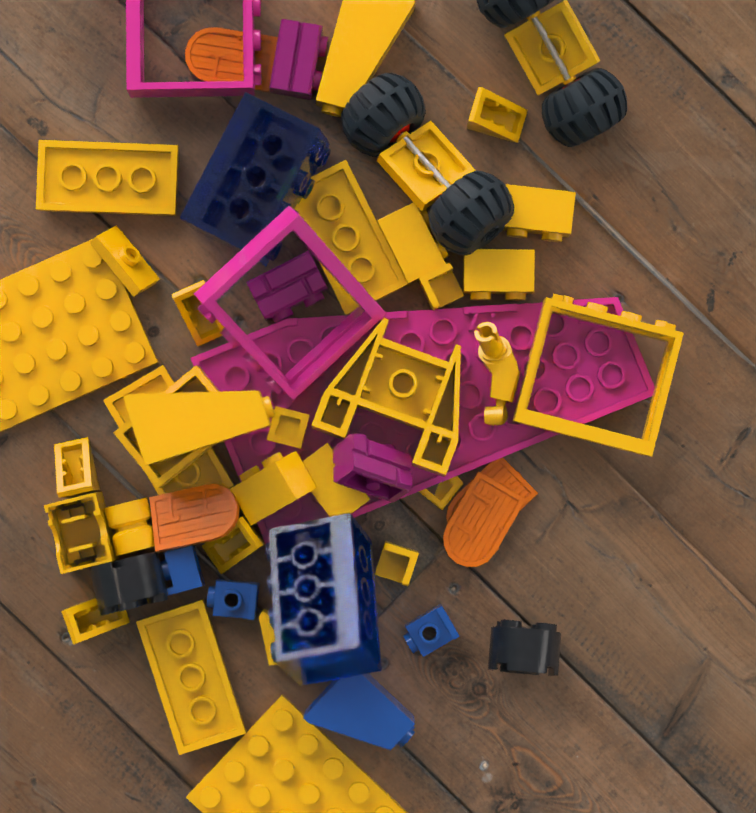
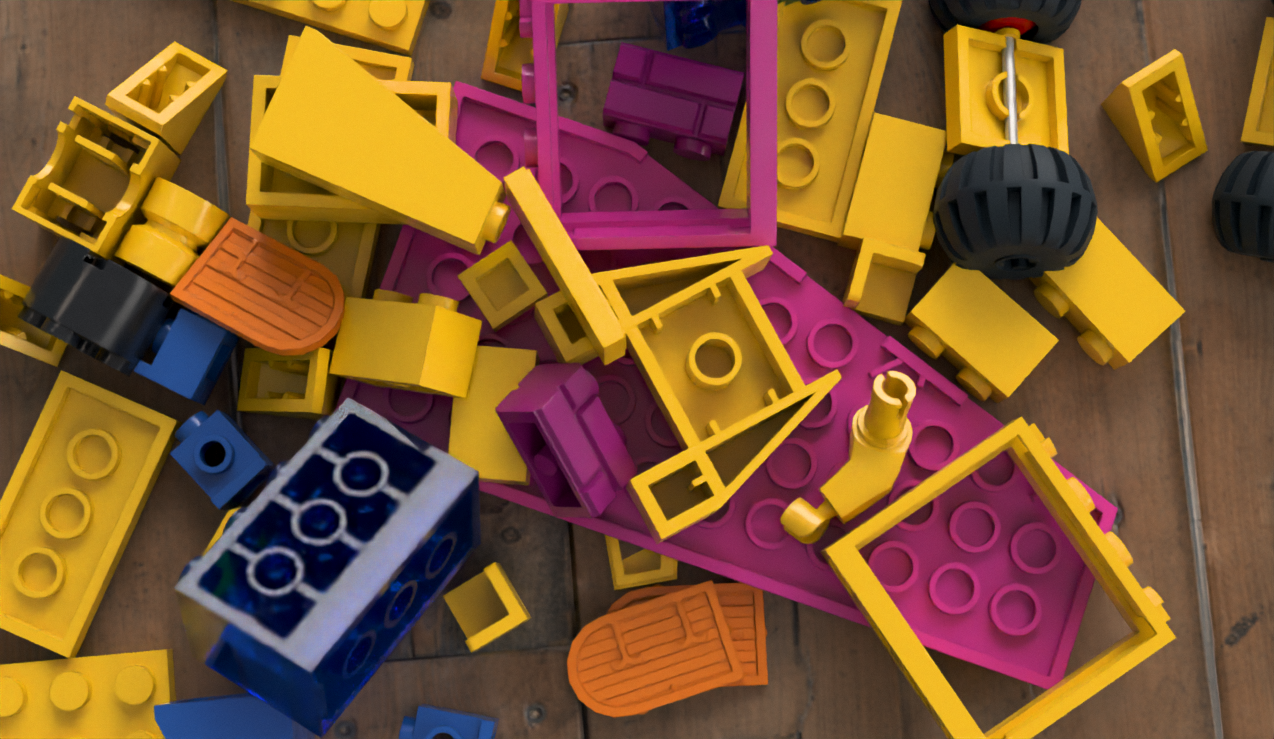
camera: 40 degrees right, 5 degrees down
(311, 399) = (565, 265): none -> yellow tile

